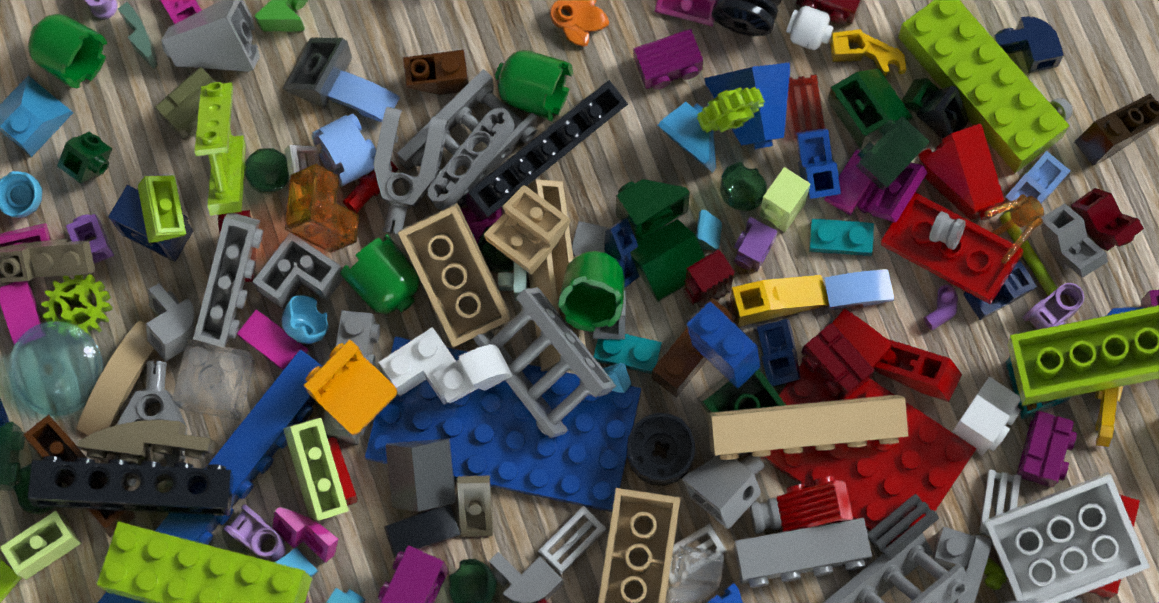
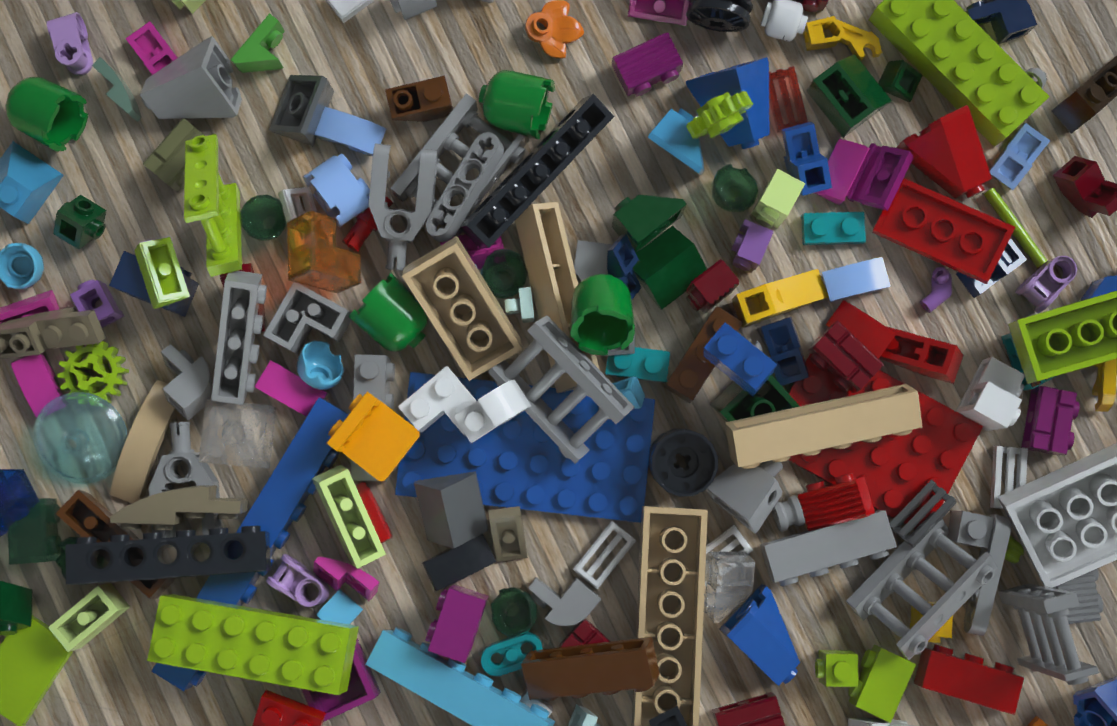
camera: 10 degrees left, 10 degrees up
(527, 229) = (529, 256): tan slope -> none
(708, 231) = (704, 235): medium azure slope -> none
(891, 153) = (879, 142): clear green brick -> none
(944, 112) = (923, 94): black slope -> none
(947, 230) = (941, 215): light grey wheel -> none
(1026, 212) = (1013, 188): clear orange plant -> none
(1068, 241) = (1054, 213): light grey brick -> none

